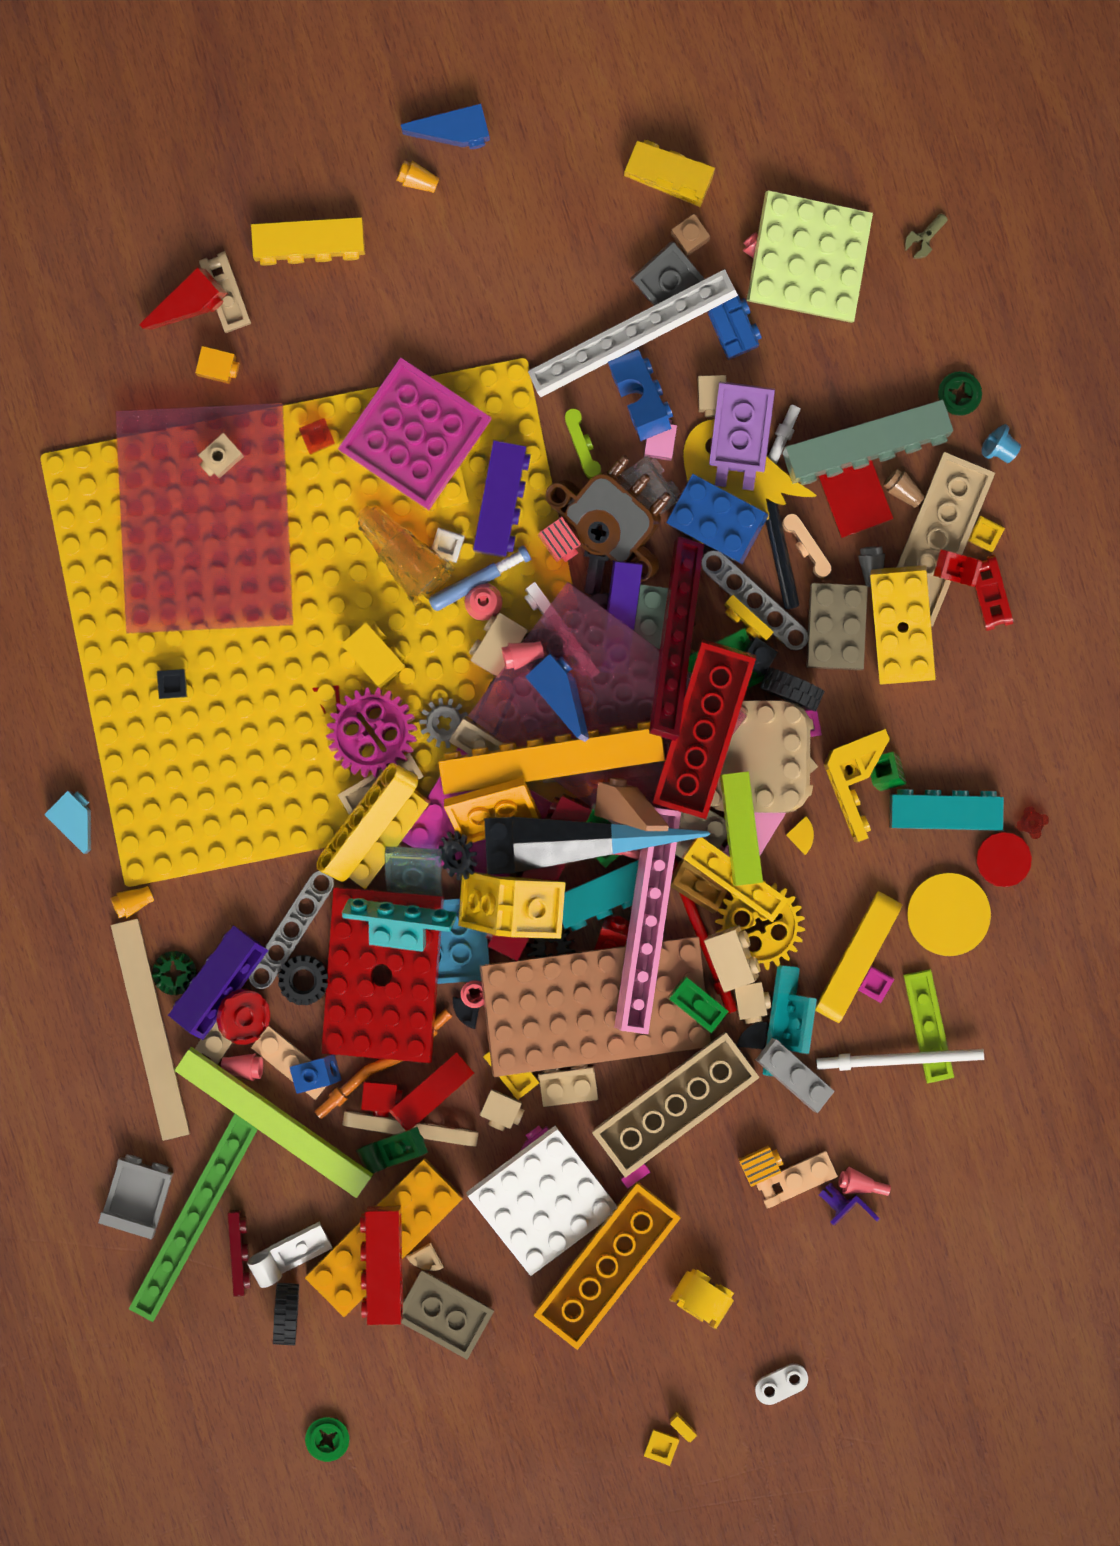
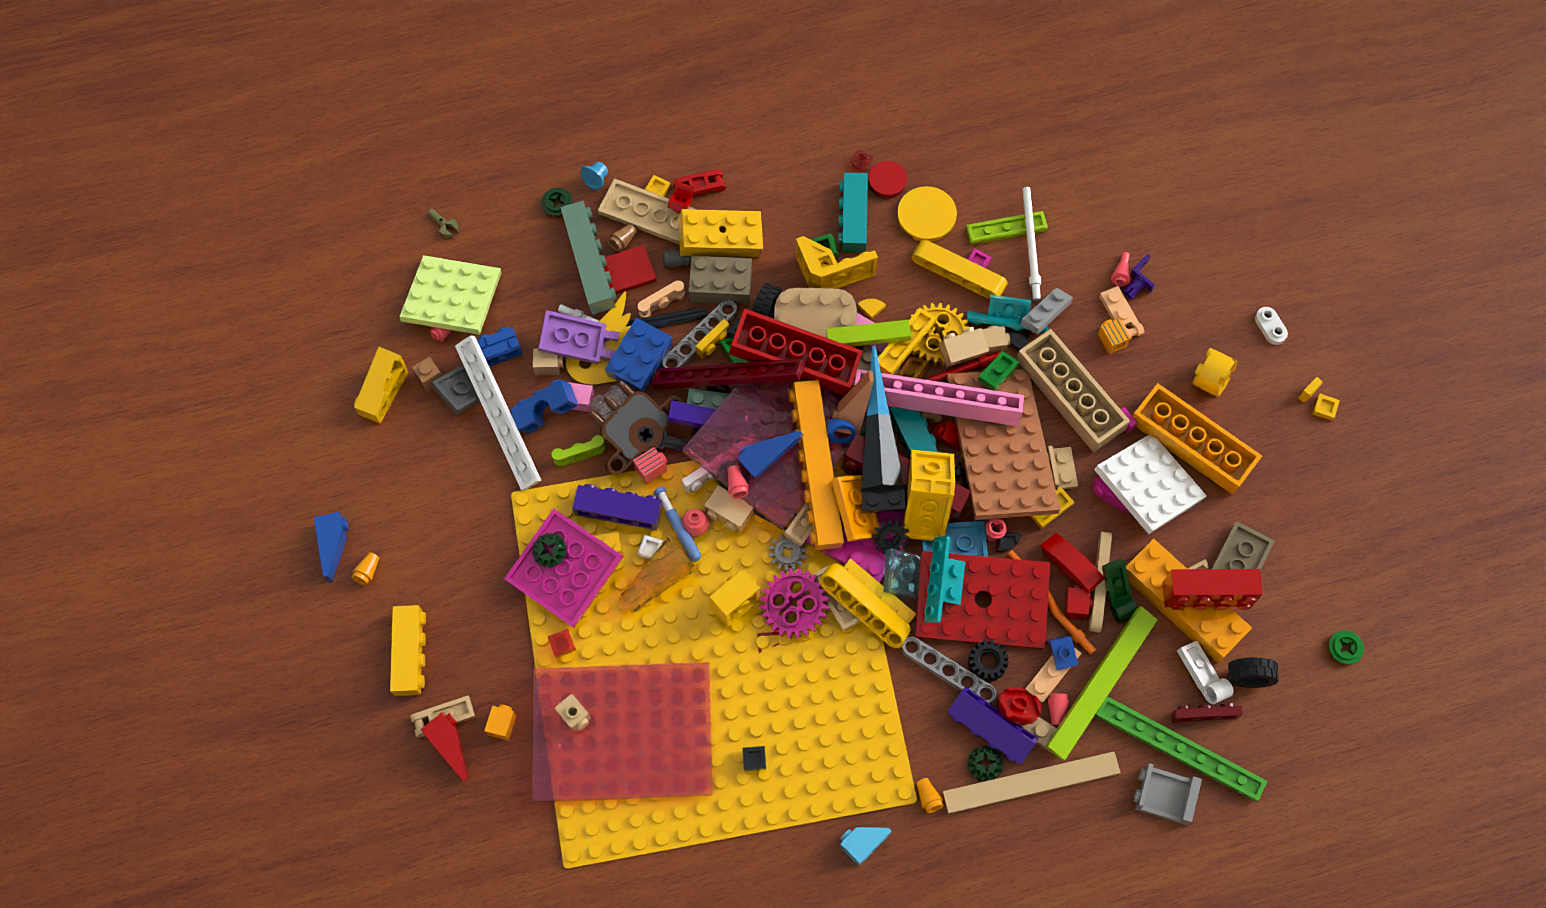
camera: 90 degrees left, 20 degrees down
(430, 426) = (547, 560): none -> dark green gear
(502, 1110) = (1082, 514): tan brick -> none
(601, 781) = (835, 424): none -> blue piece

